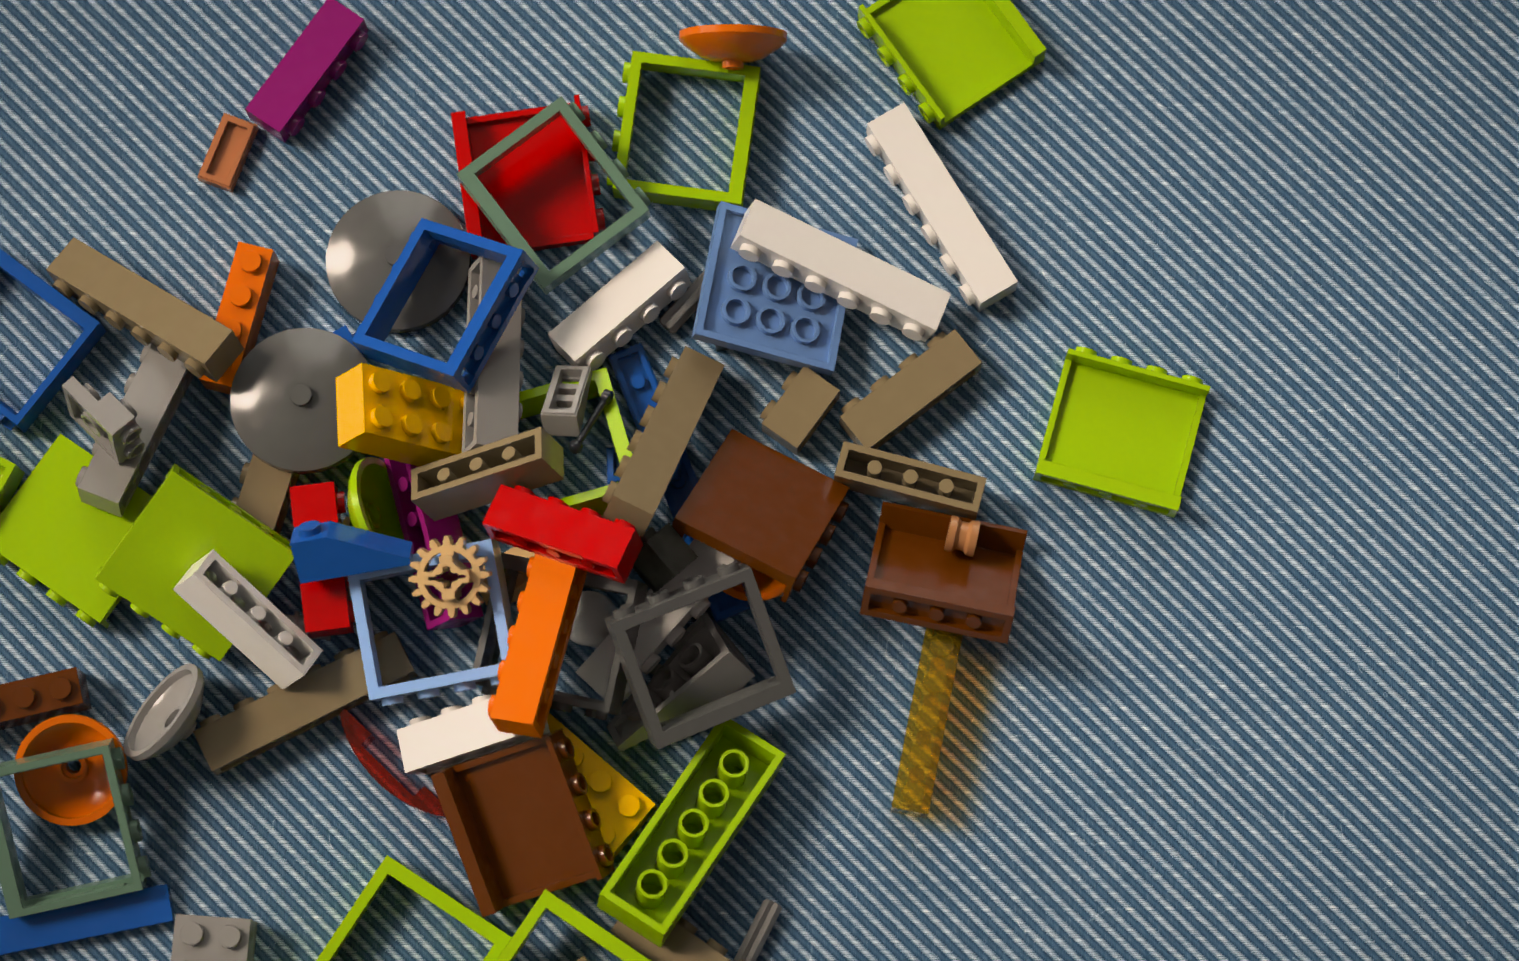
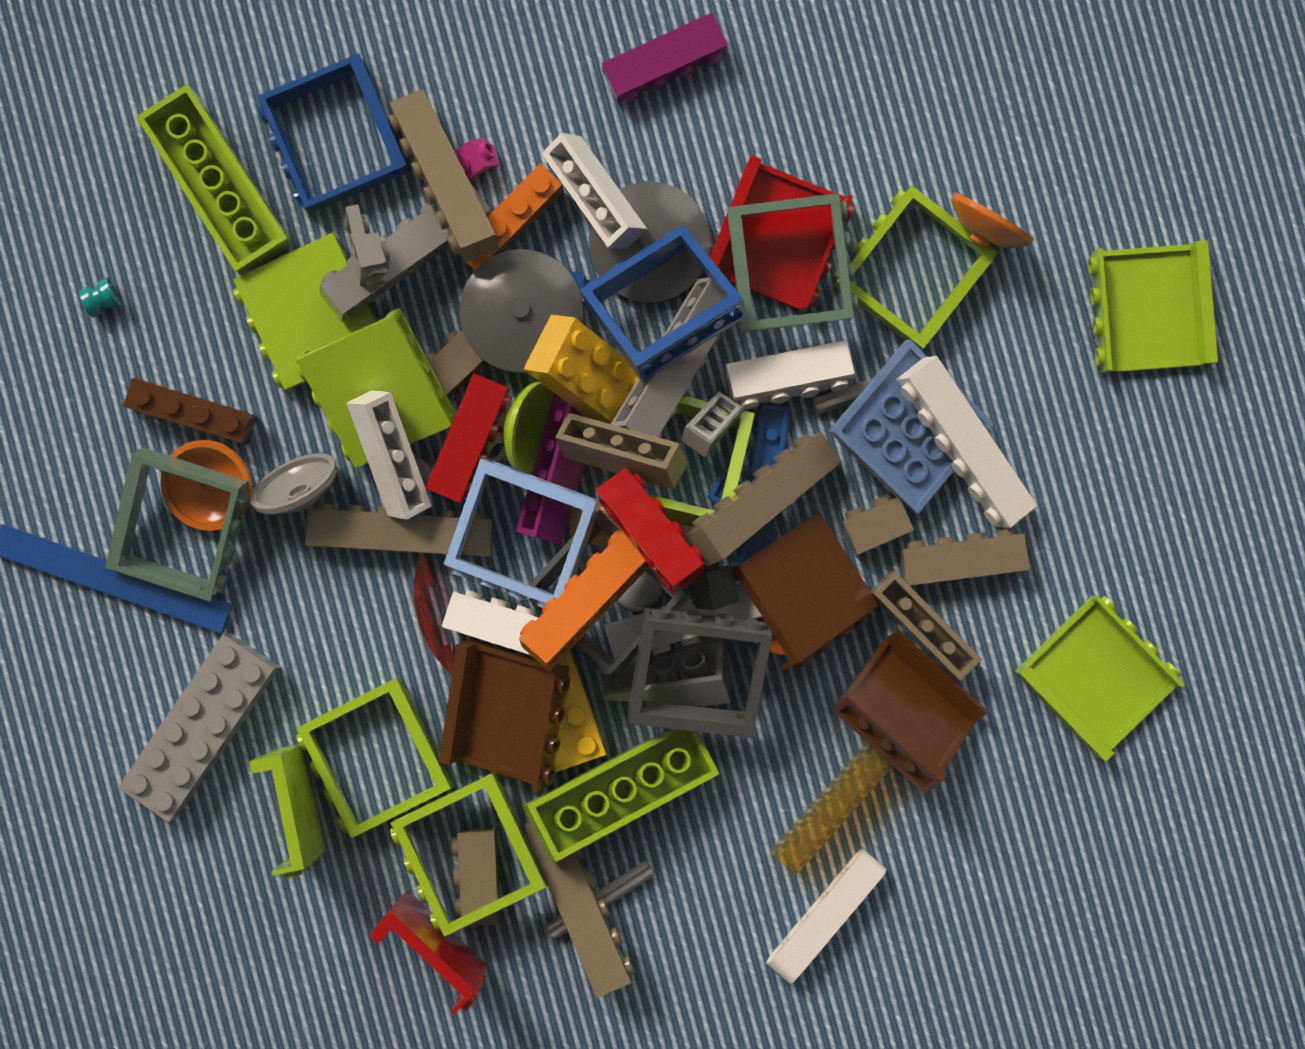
camera: 25 degrees right, 10 degrees up
(170, 273) = (476, 157): none -> dark pink bracket
(228, 152) = (571, 87): nougat tile -> none
(310, 238) = (594, 191): none -> white brick
(341, 550) = (484, 447): blue slope -> none
(450, 592) = (538, 508): tan gear -> none
(606, 398) = (698, 463): black hinge -> none
(940, 207) = (1067, 433): white brick -> none
(962, 535) = (939, 689): medium nougat wheel -> none
(988, 843) = (826, 916): none -> white beam

